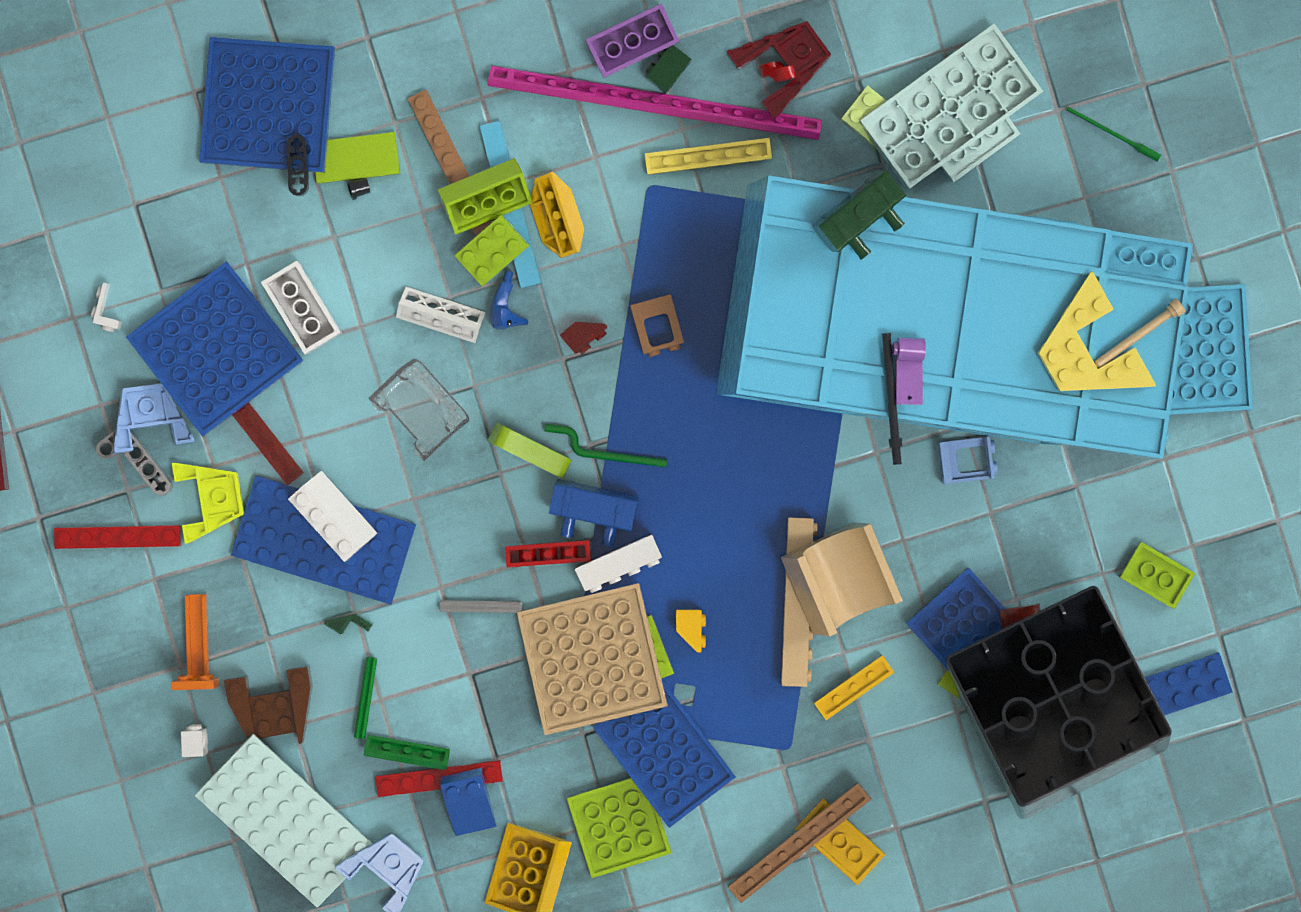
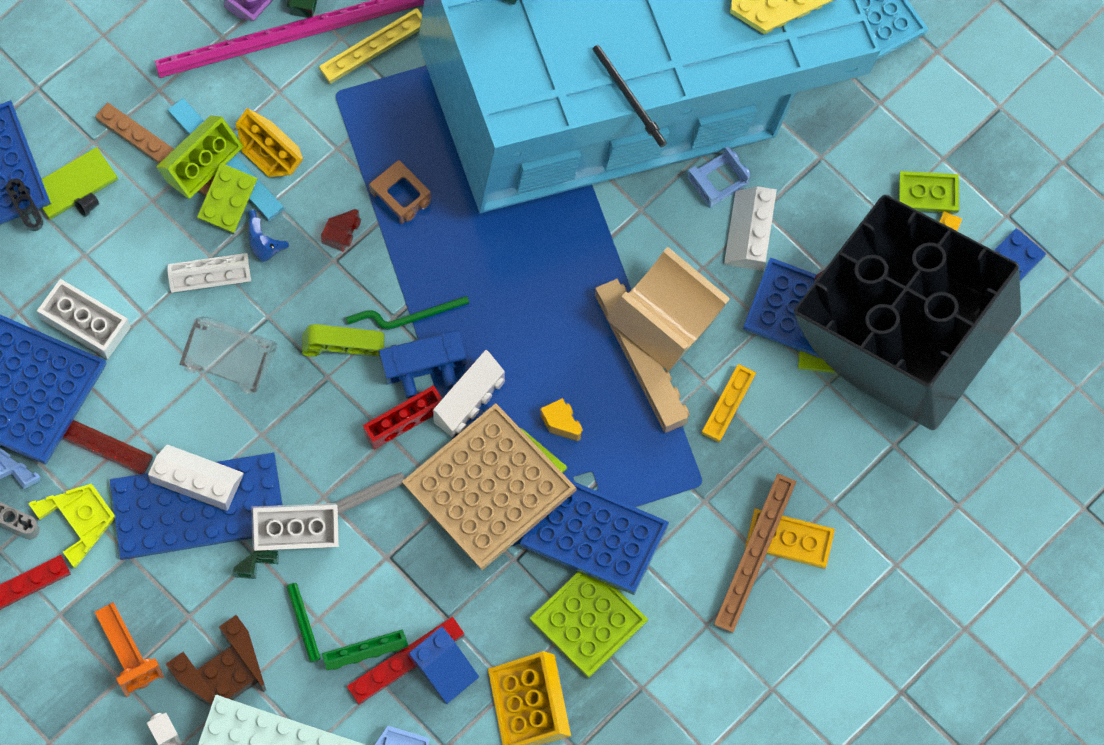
camera: 30 degrees left, 20 degrees down
(397, 611) = (294, 526): none -> white brick
(909, 370) = (625, 56): medium lavender door -> none
(967, 526) = (750, 228): none -> white slope
(1158, 616) = (951, 220): none -> yellow plate

